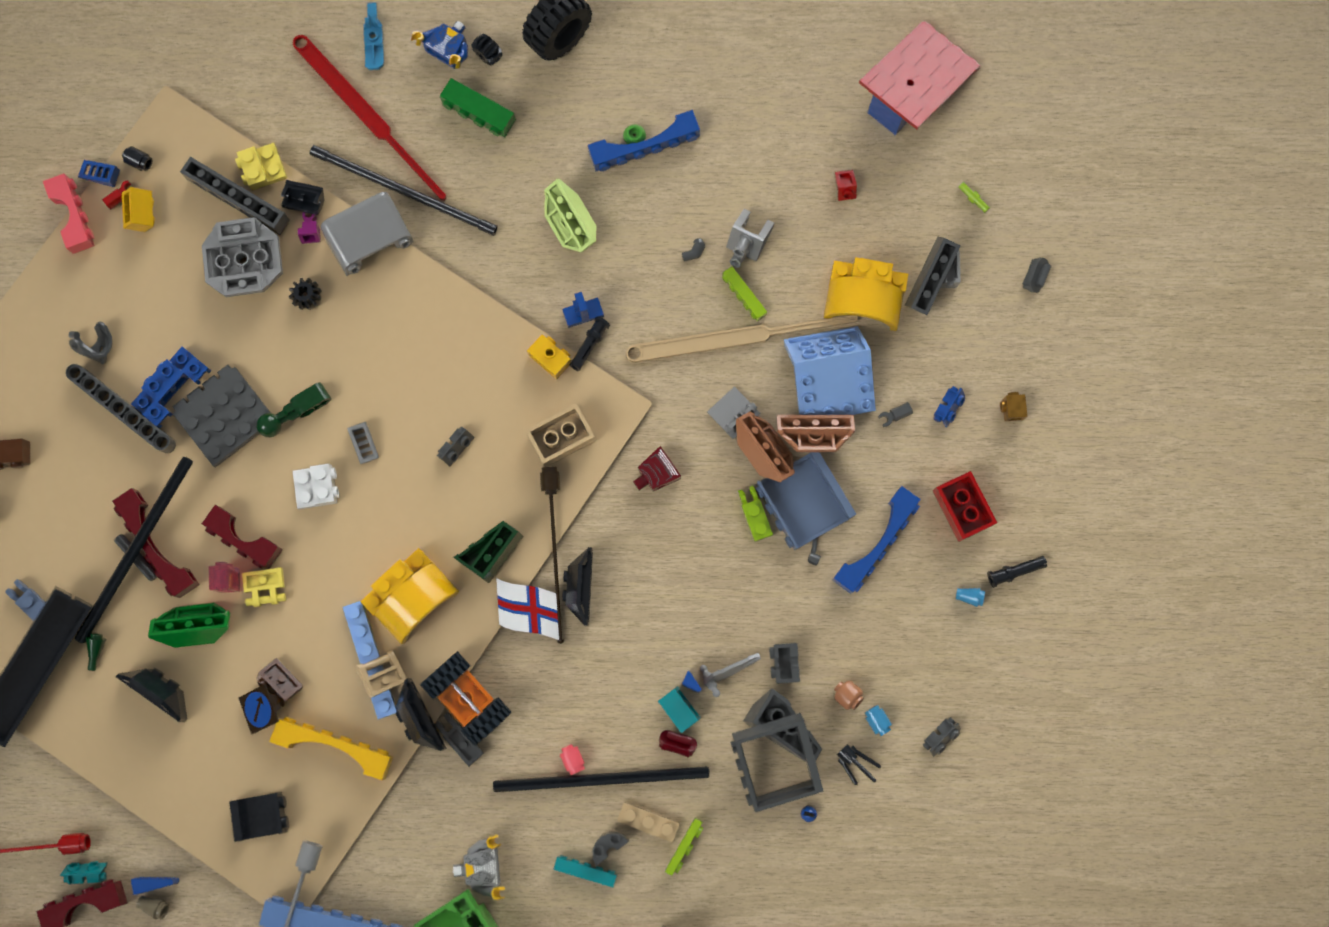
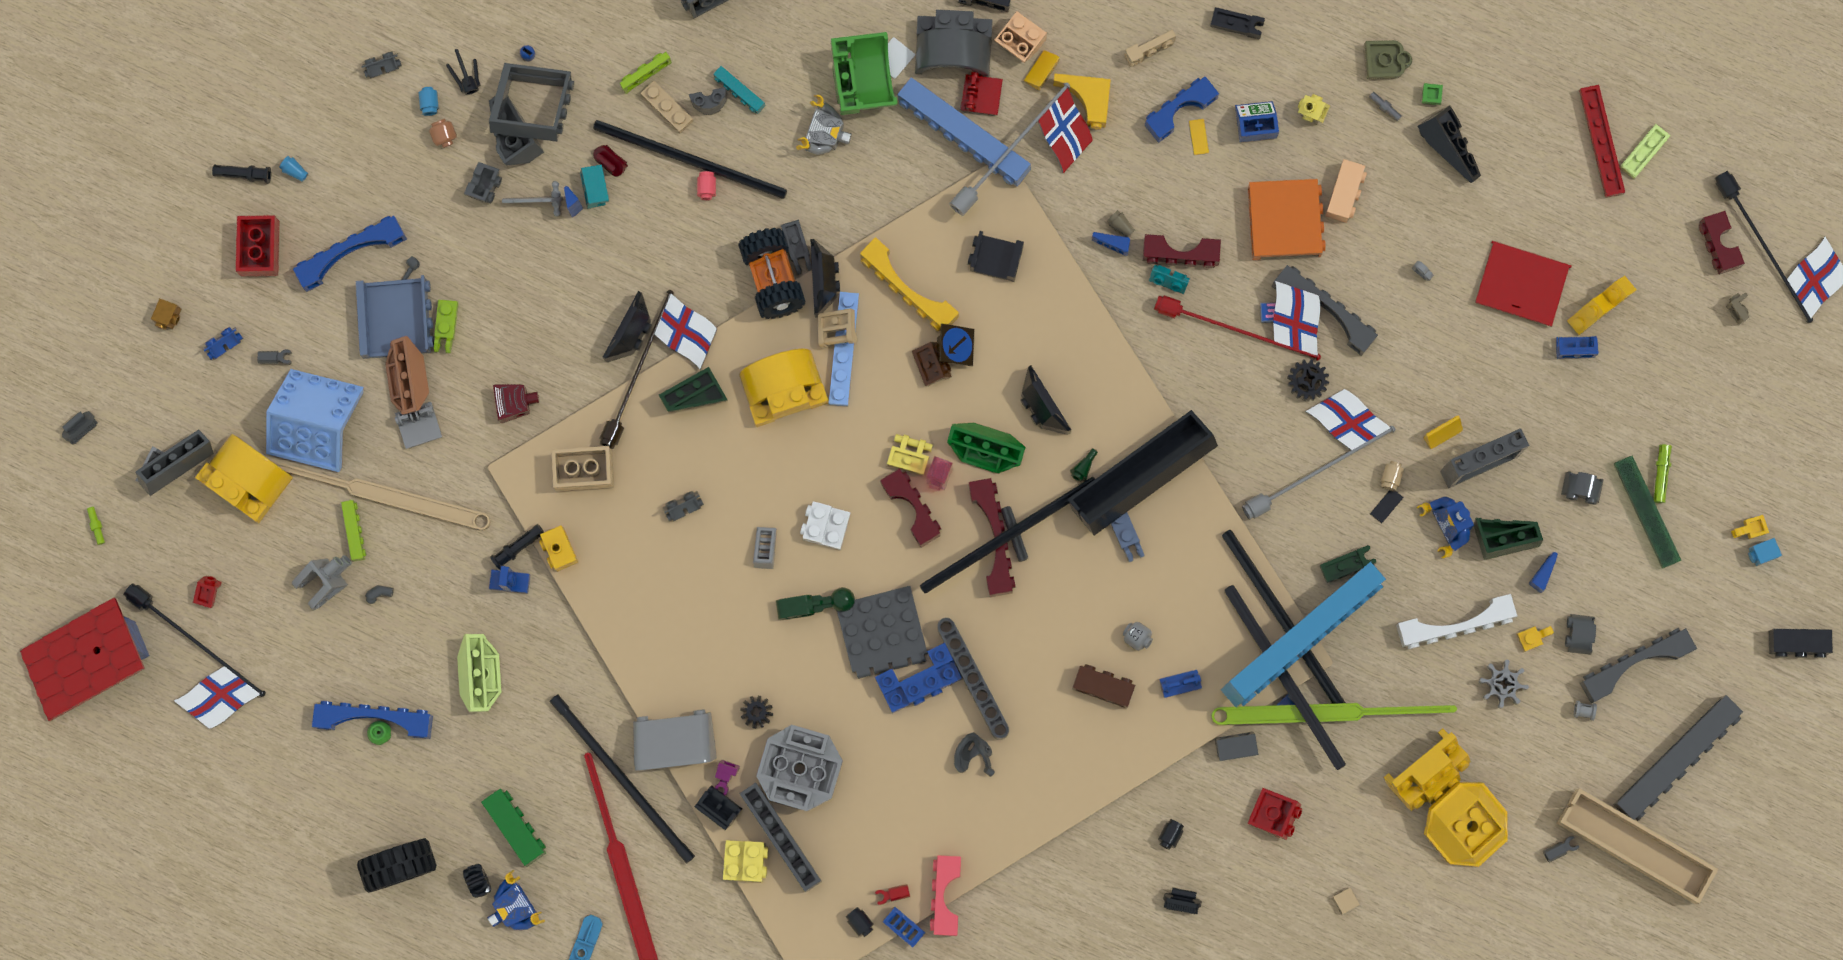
camera: 150 degrees left, 0 degrees up
(137, 209) = (879, 866): yellow brick -> none
(790, 106) = (218, 693): none -> flag
(816, 432) = (353, 367): nougat wedge -> none

